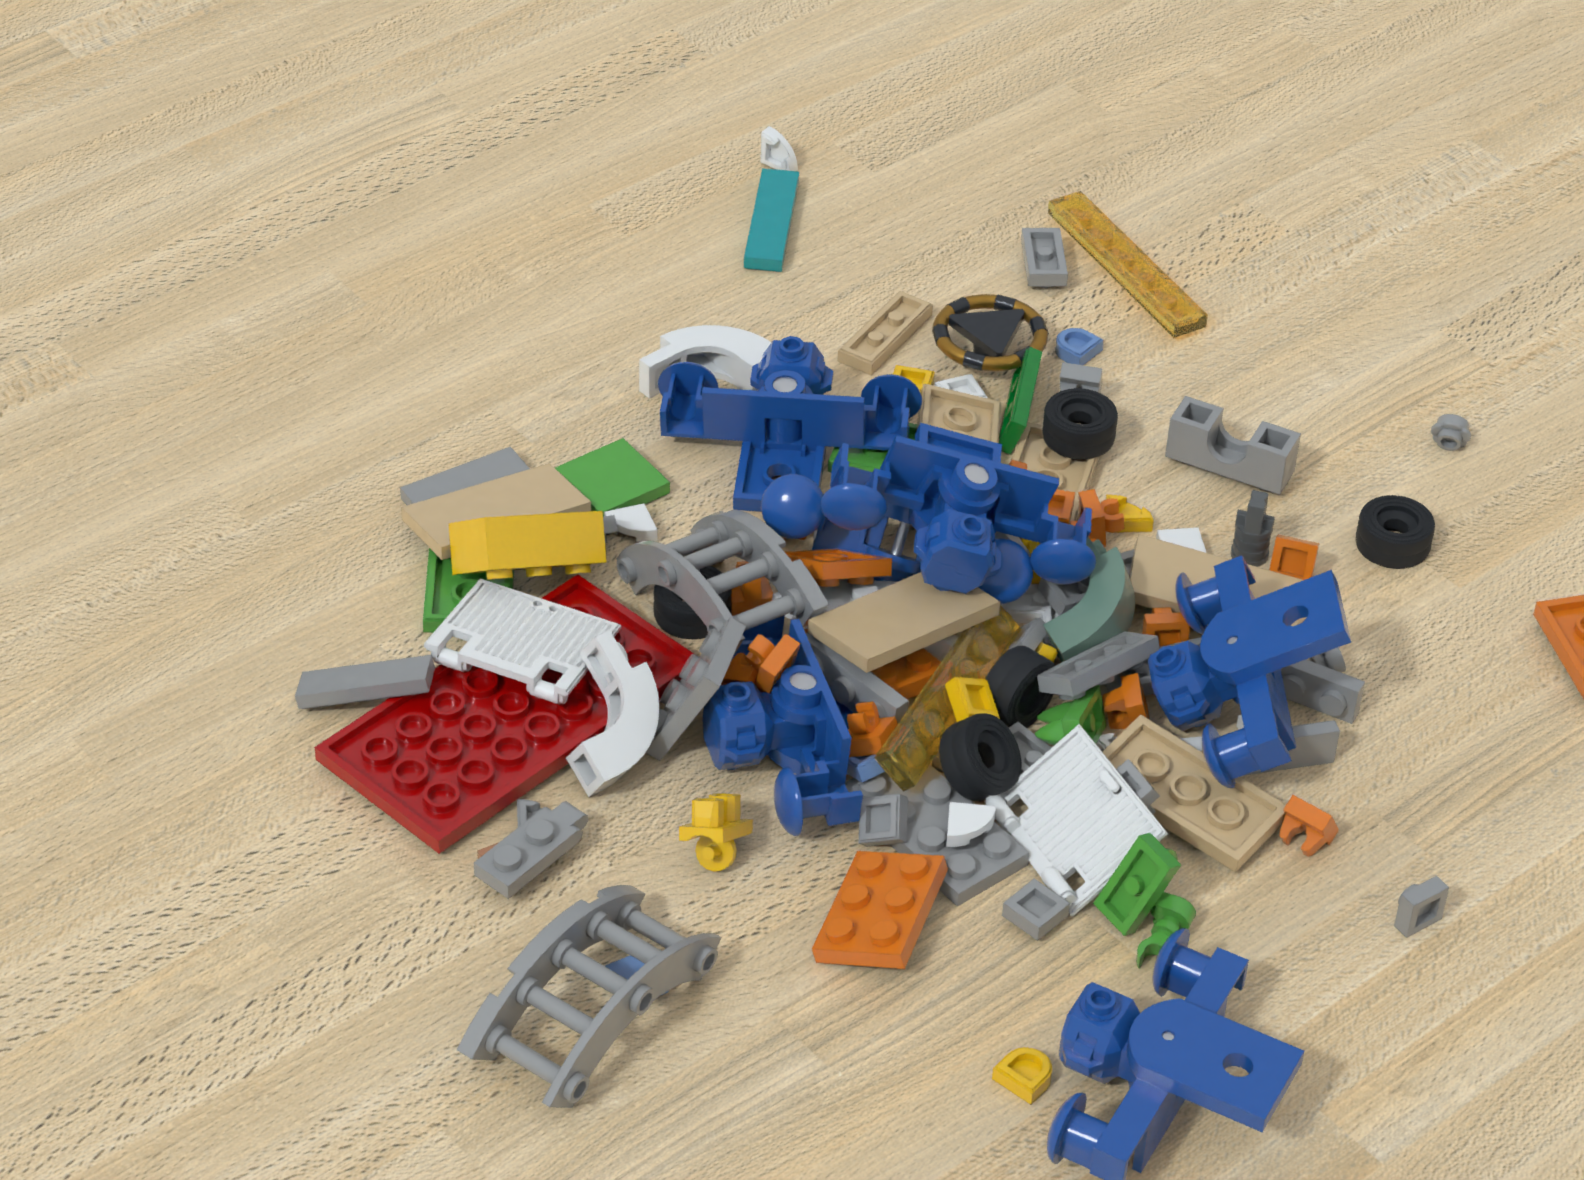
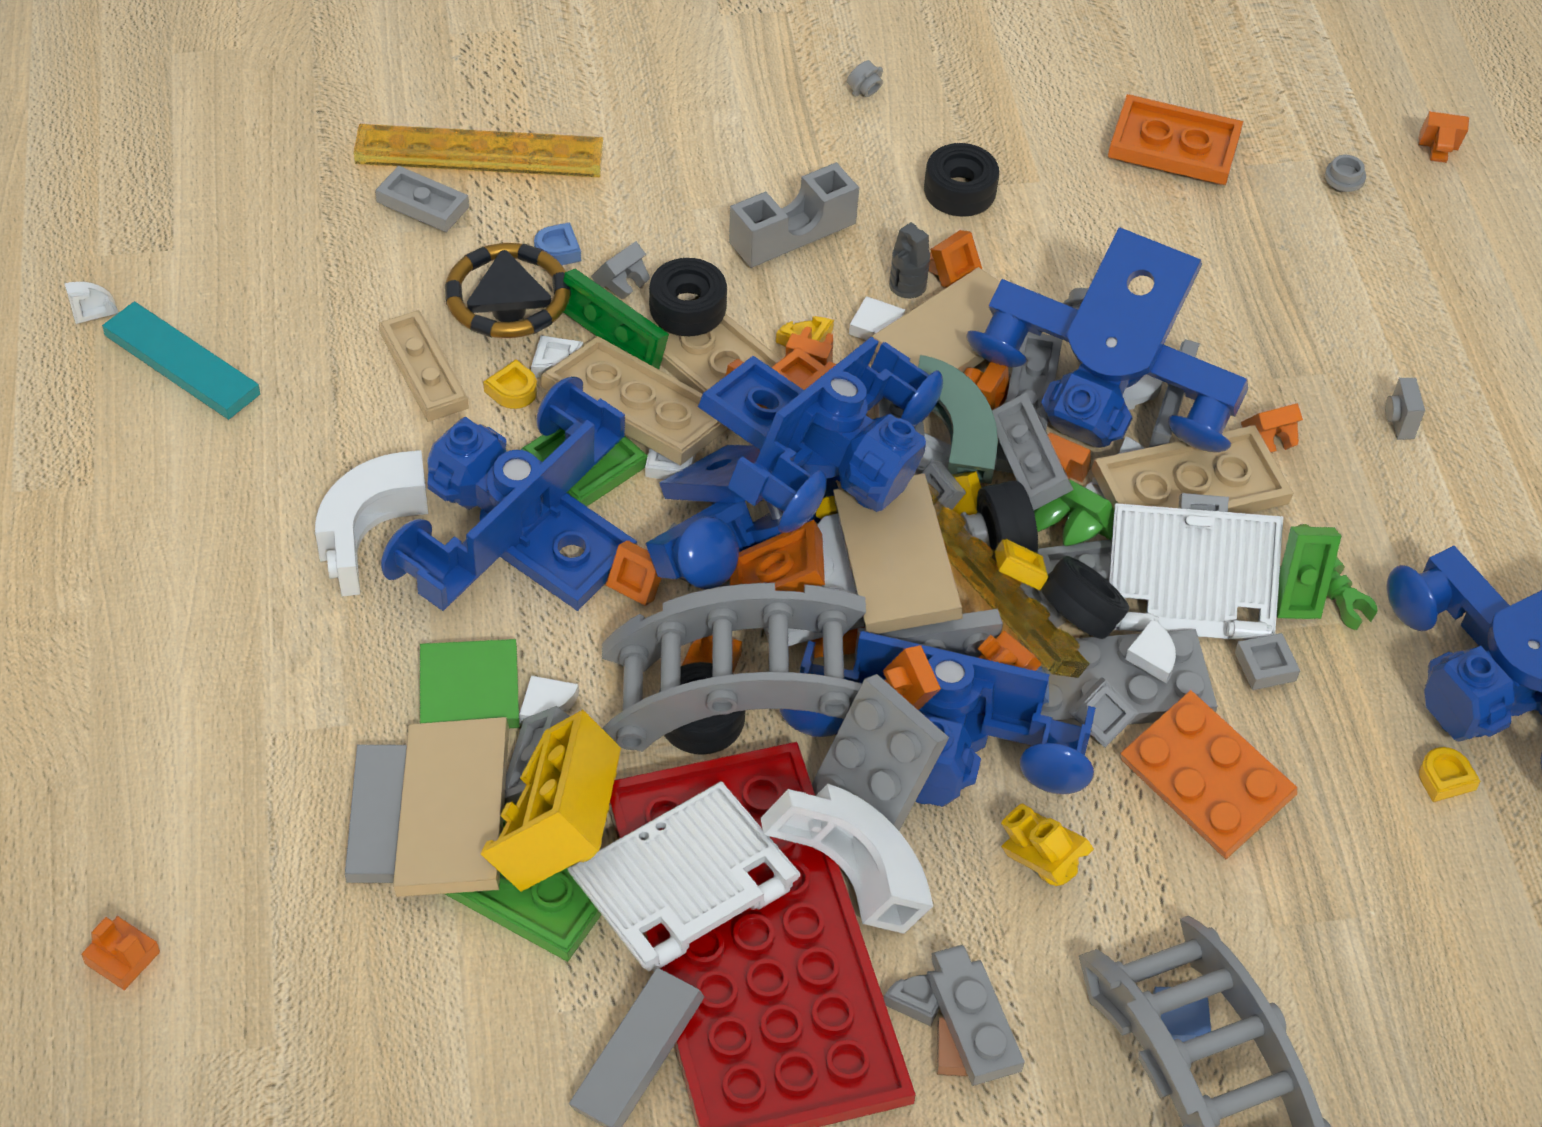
camera: 60 degrees left, 10 degrees up
(262, 417) = (119, 951): none -> orange tile

